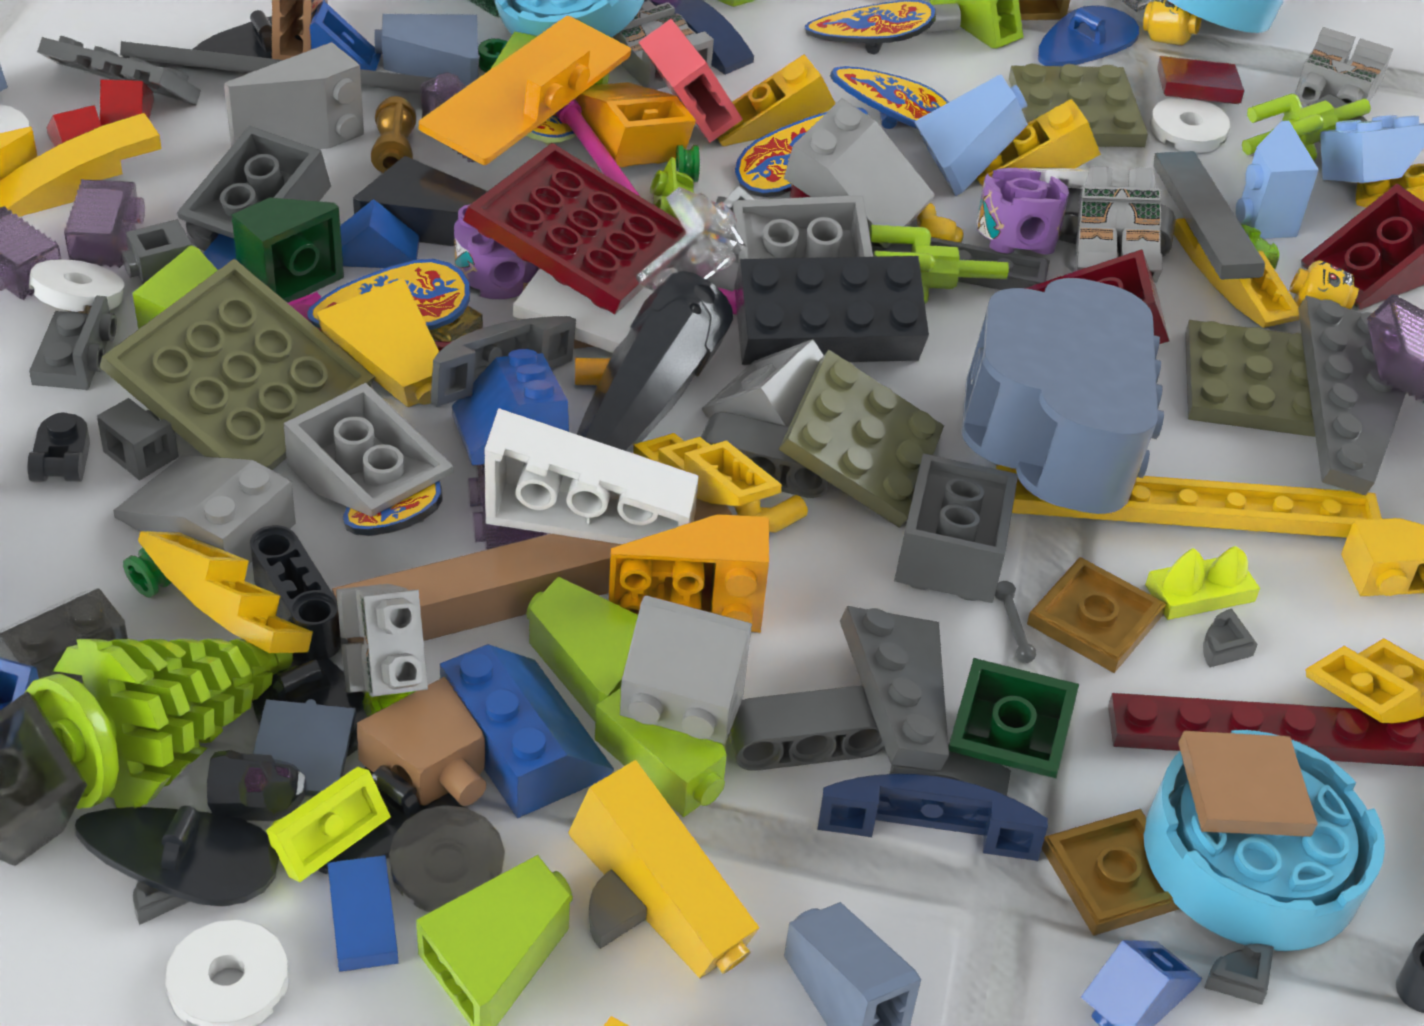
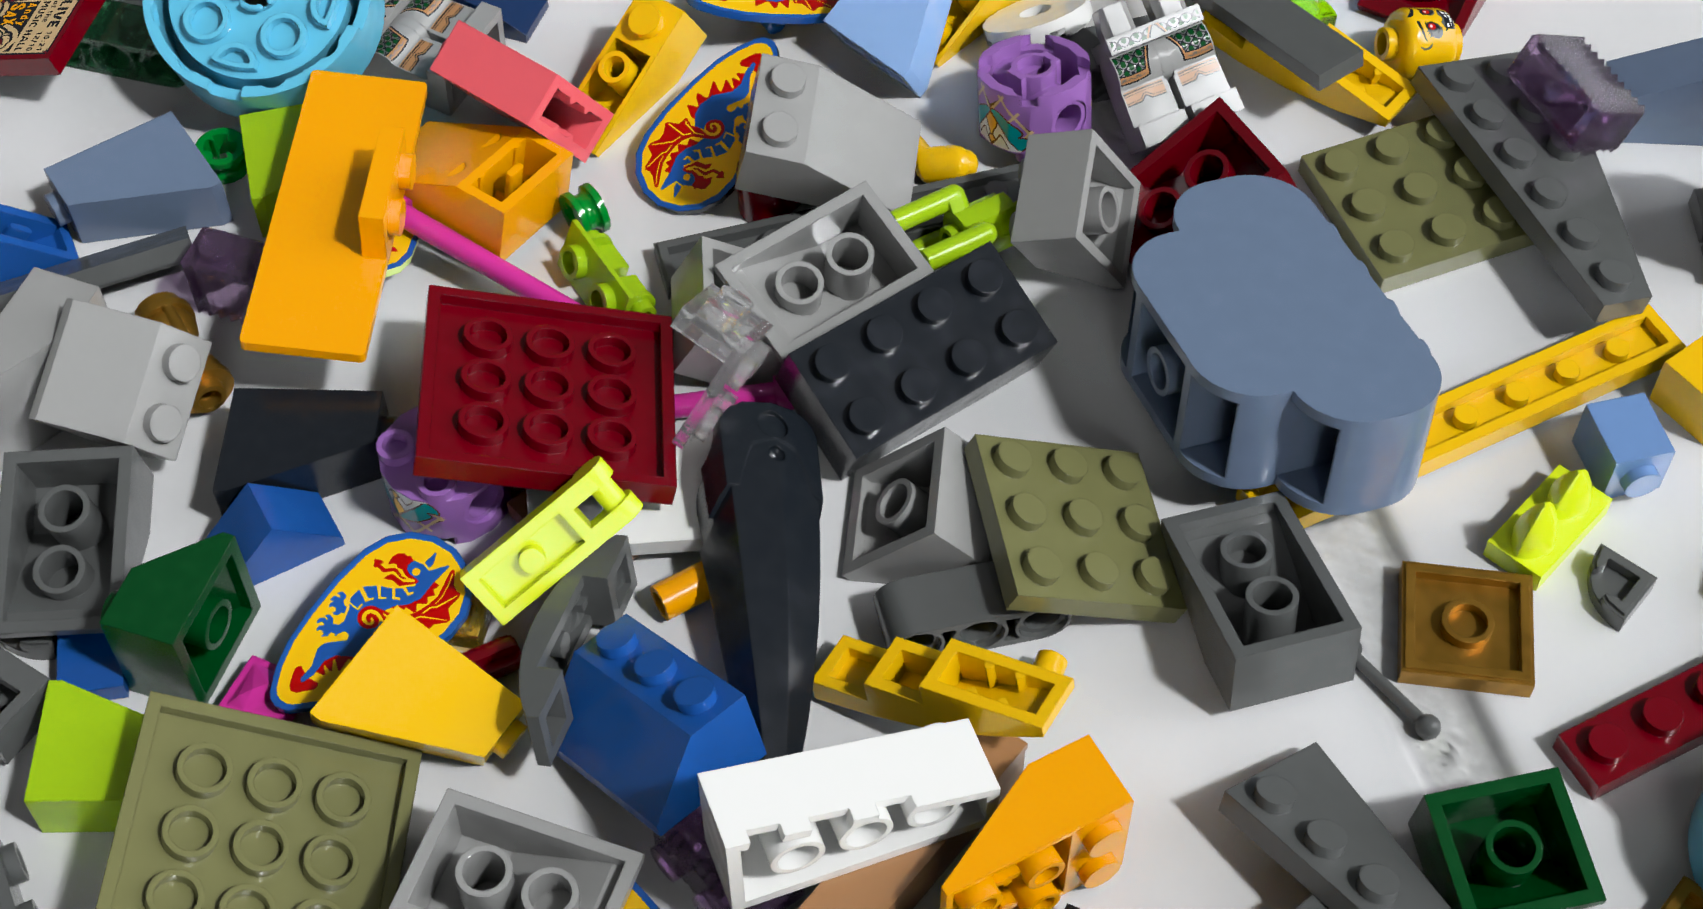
camera: 25 degrees left, 10 degrees up
(341, 118) = (120, 379): none -> light grey slope
(523, 294) = (549, 542): none -> neon yellow plate
(995, 257) = (1075, 208): none -> light grey slope
(1290, 561) = (1623, 446): none -> medium blue brick

